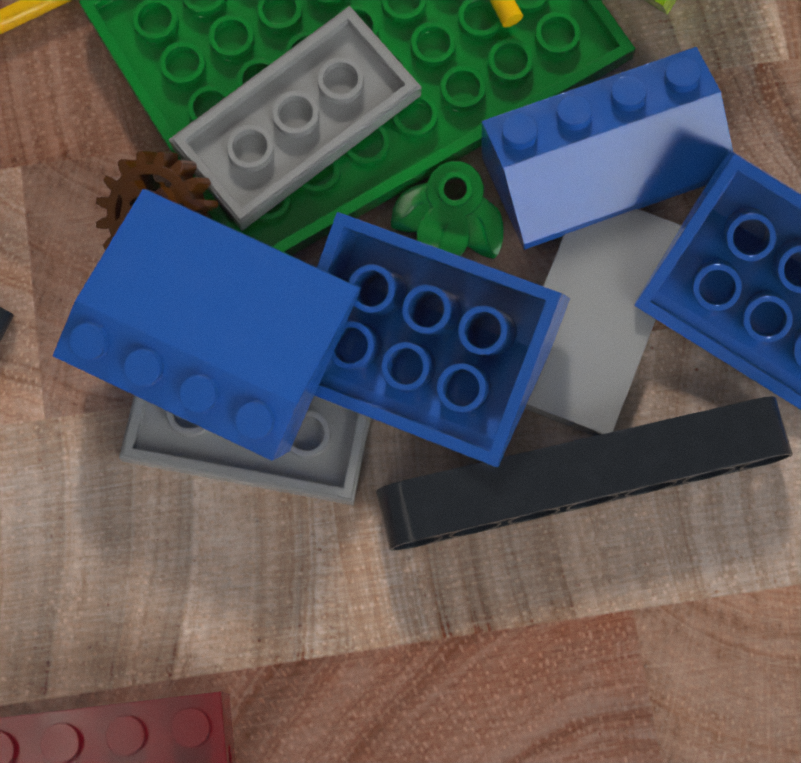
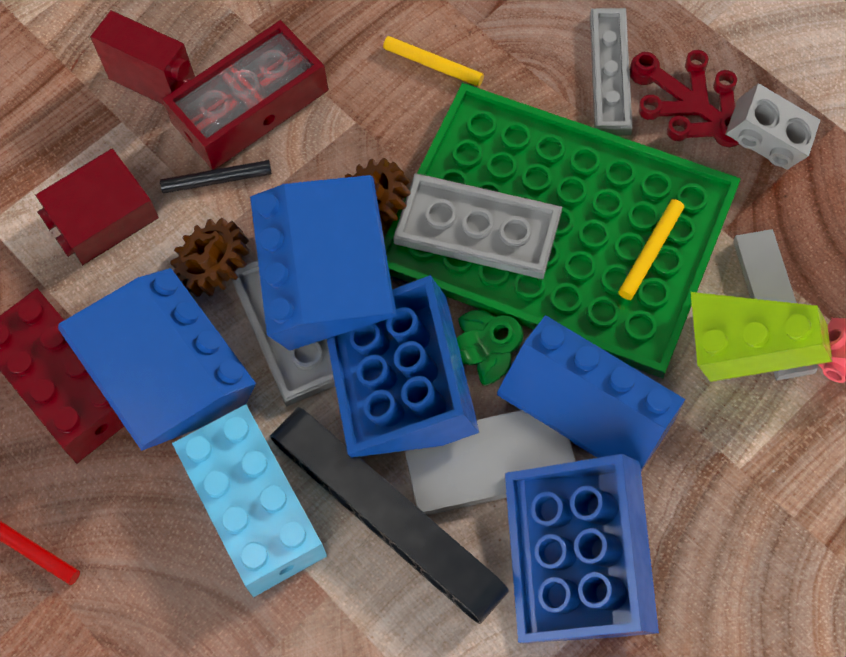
camera: 60 degrees right, 10 degrees down
(84, 461) = (210, 256): none -> reddish brown gear
(189, 623) = (157, 359): none -> blue slope
(460, 625) = (249, 500): none -> medium azure brick

